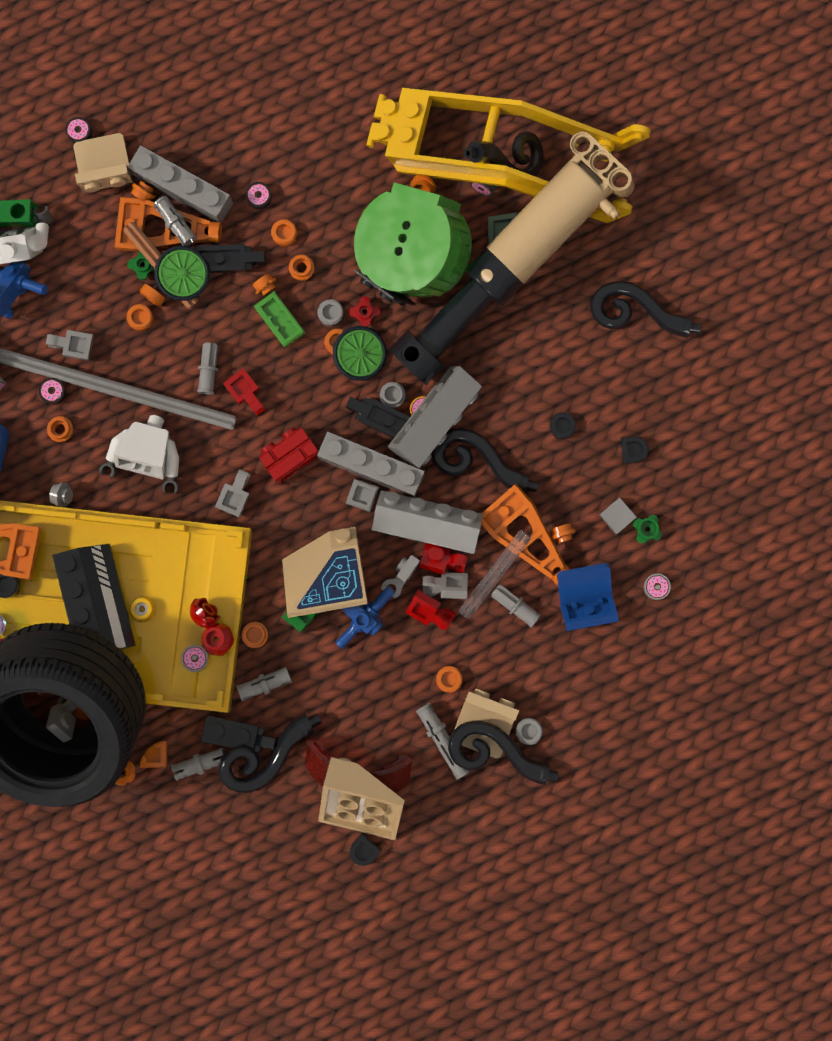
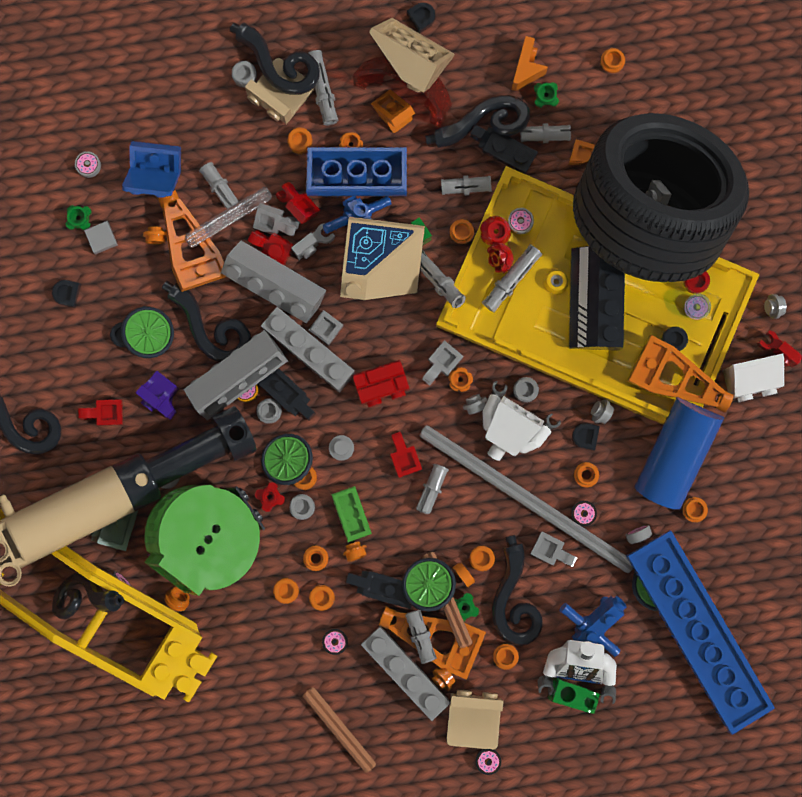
camera: 170 degrees left, 0 degrees up
(71, 467) = (586, 436): none -> black tile
(89, 231) = (505, 656): none -> orange plate
(105, 319) = (514, 561): none -> black plant
(144, 495) = (525, 390): none -> light grey tile
(151, 864) = (612, 60): none -> orange plate
(186, 595) = (511, 279): none -> light grey pin
(189, 463) = (475, 404): none -> light grey plate
(205, 487) = (460, 373): none -> orange plate
(214, 799) = (541, 89): none -> green plate
(229, 115) = (339, 729): none -> nougat axle
(238, 822) = (528, 71): none -> orange slope
(253, 568) = (443, 285): none -> light grey pin
(309, 381) = (341, 447): none -> light grey plate
(320, 228) = (286, 590): none -> orange tile
(362, 739) = (393, 110): none -> orange slope
(377, 660) = (356, 171): none -> blue brick
(402, 693) = (350, 137): none -> orange plate
(505, 374) = (159, 394): none -> dark purple brick
(538, 435) = (147, 332): none -> bright green wheel
(552, 343) = (106, 412): none -> red plate

